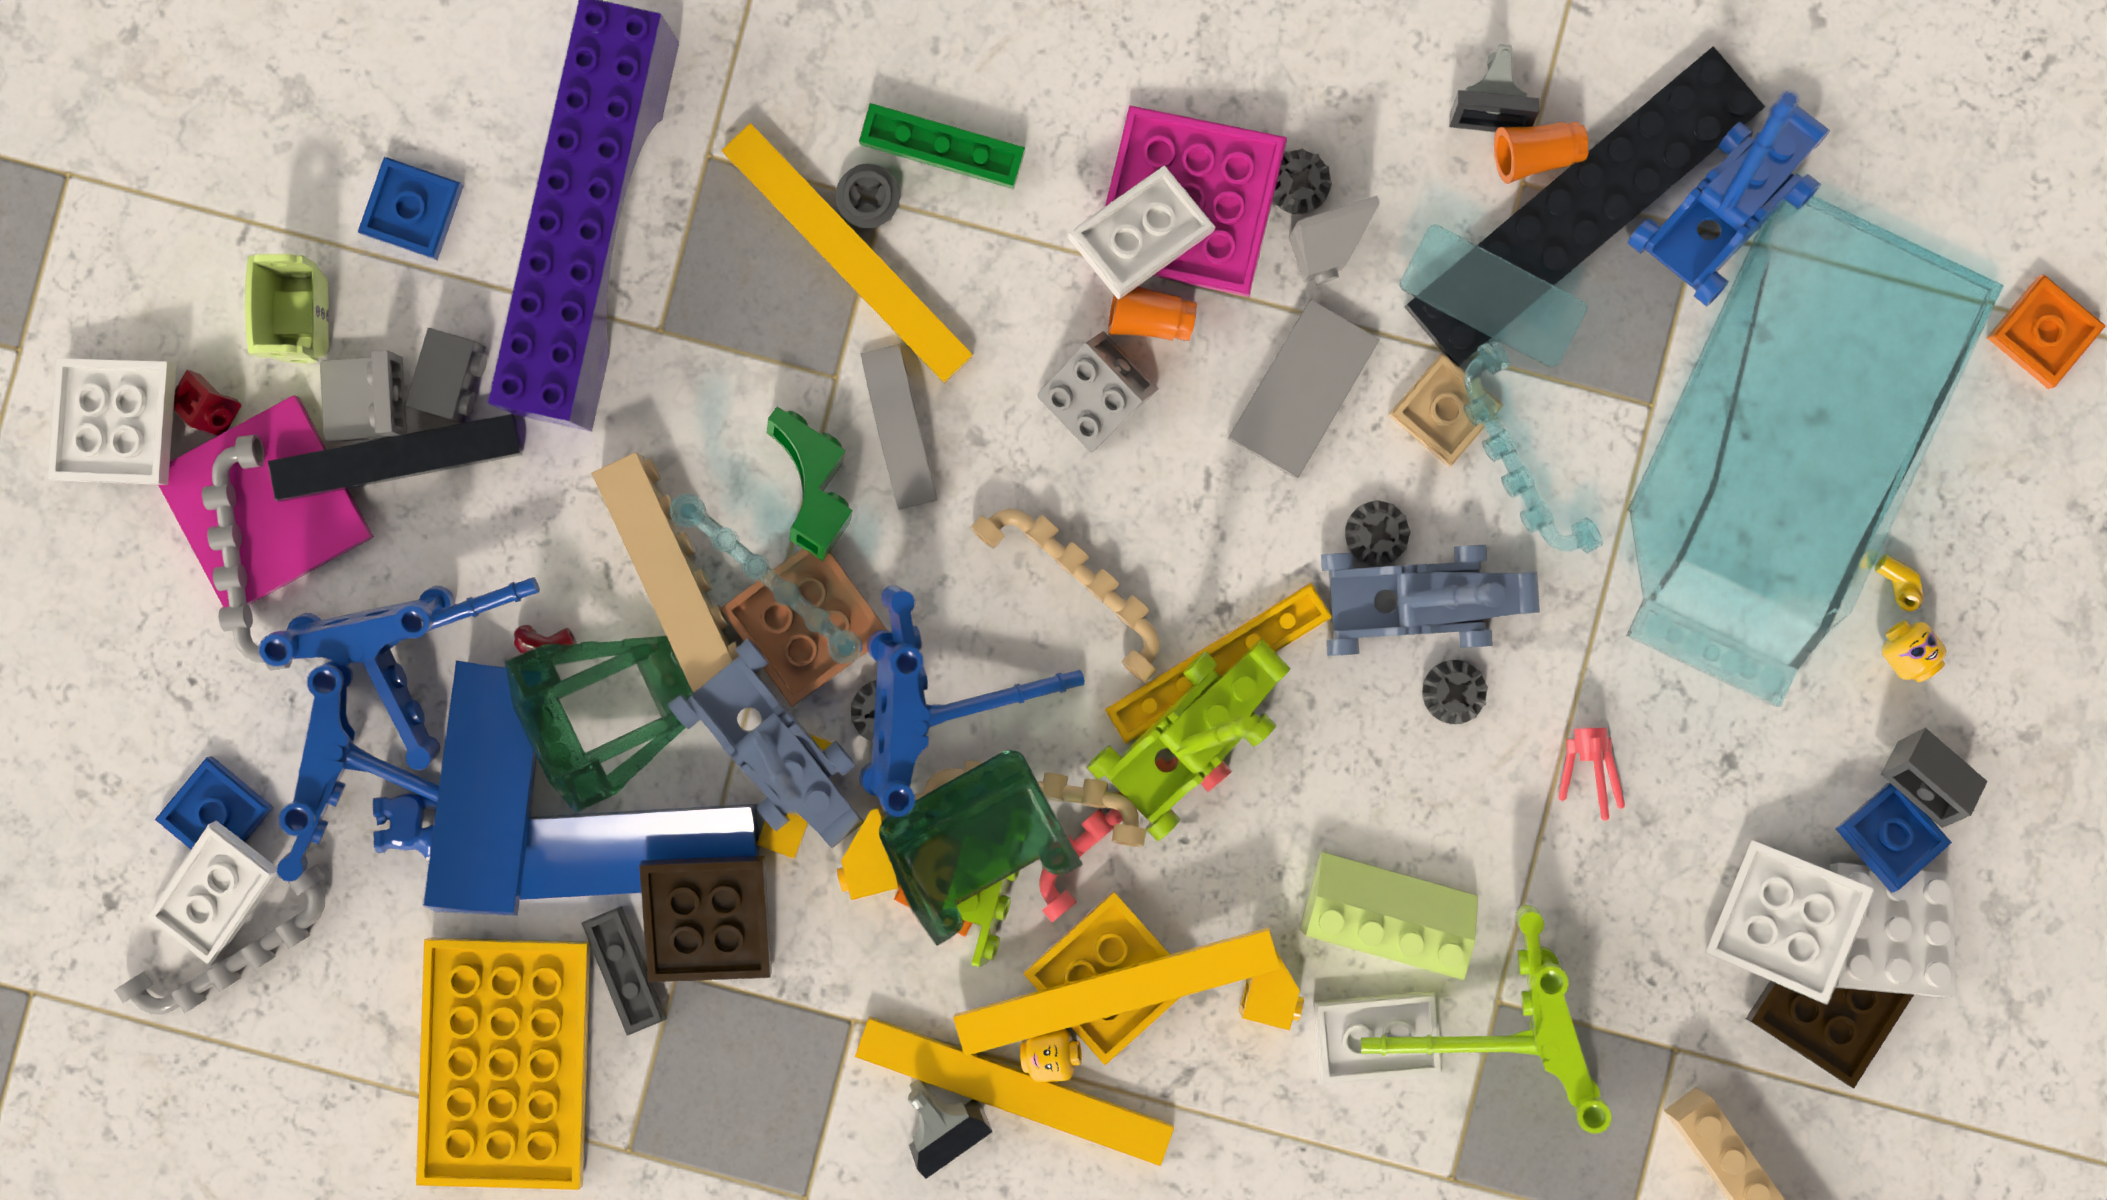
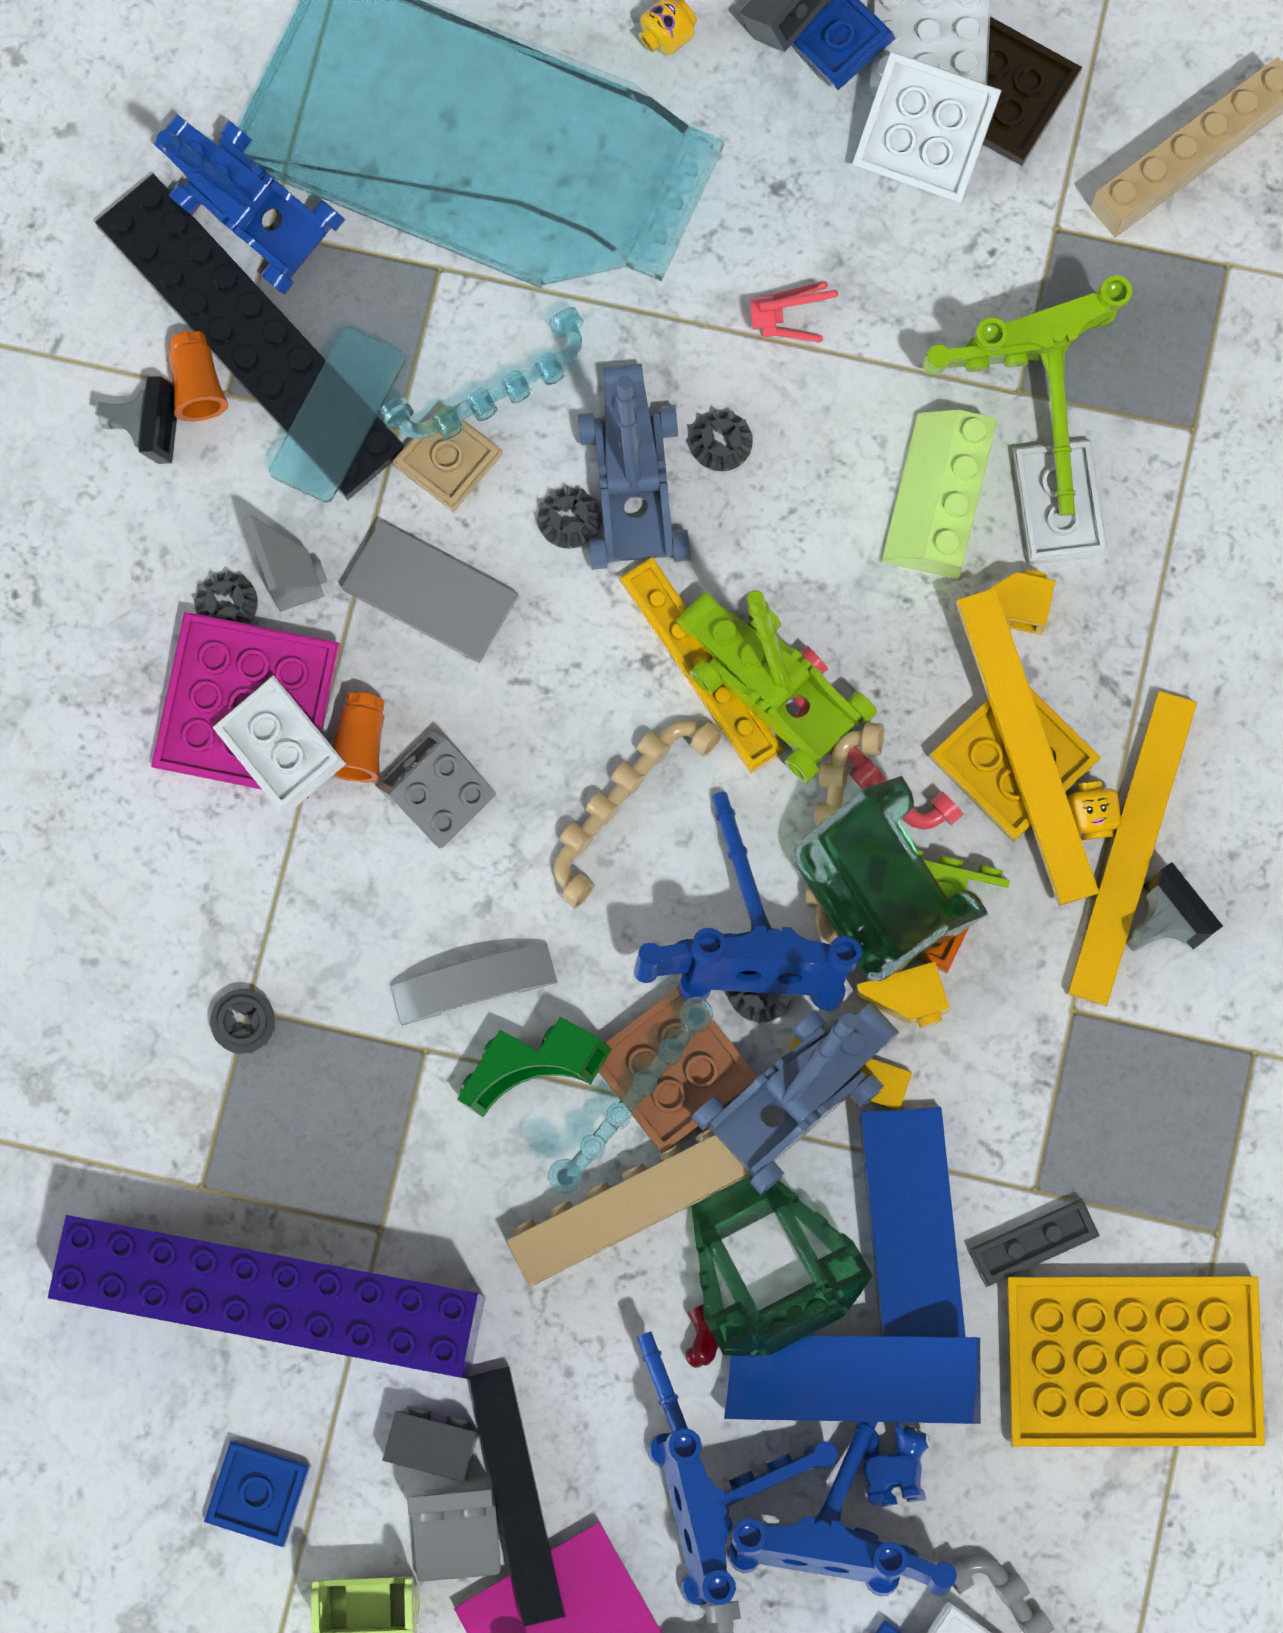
camera: 85 degrees left, 10 degrees down
(706, 919) = (976, 1156): dark brown plate -> none
(847, 253) = (299, 1042): yellow tile -> none
(941, 146) = (192, 948): green plate -> none
(1905, 582) = (602, 36): yellow arm -> none

